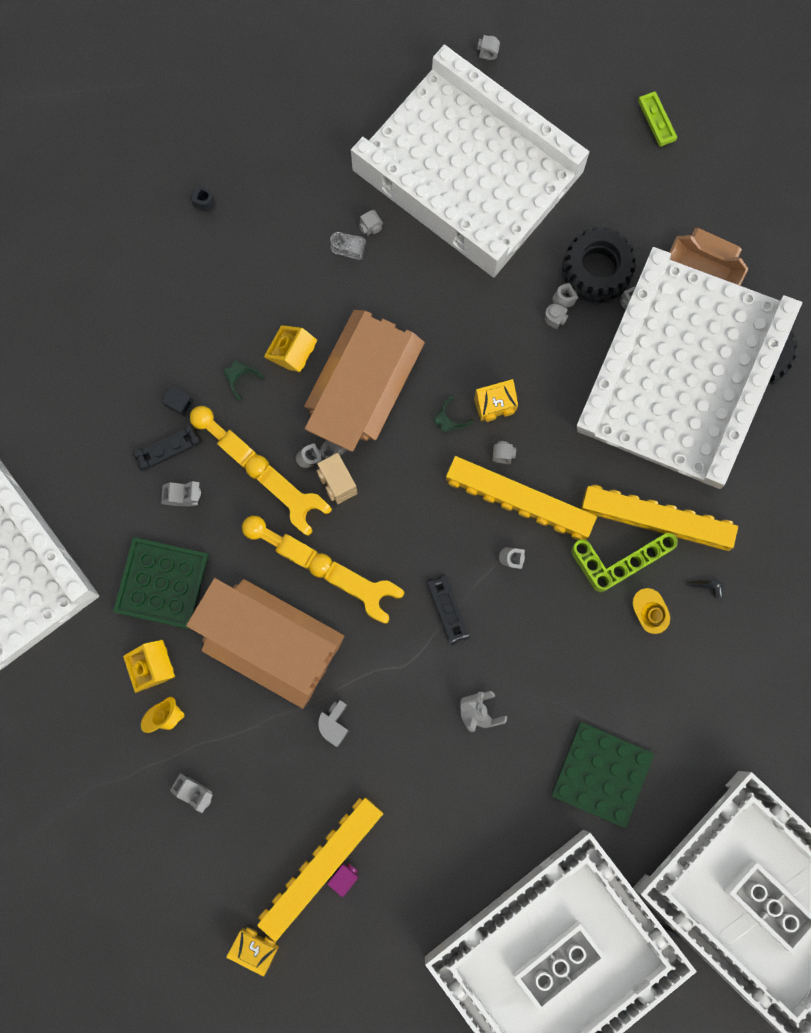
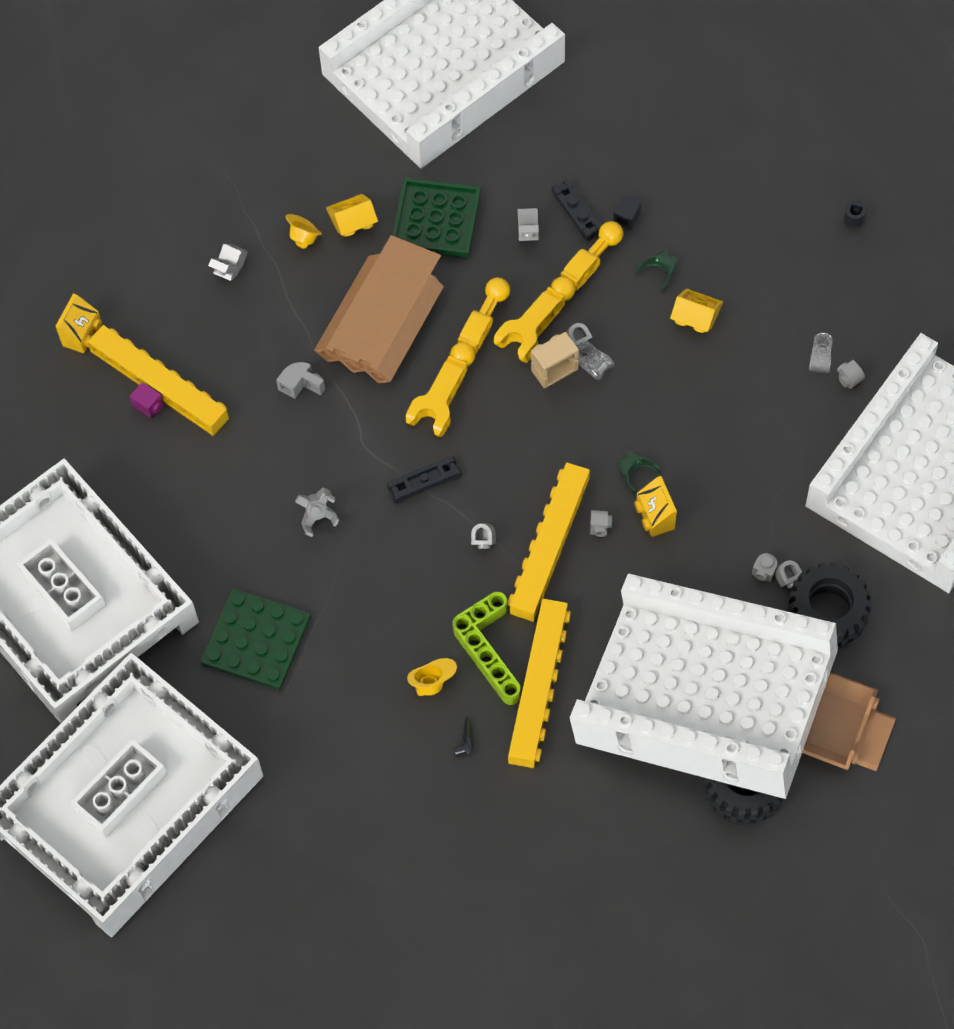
camera: 90 degrees right, 15 degrees down
(361, 380) = (665, 376): medium nougat panel -> none

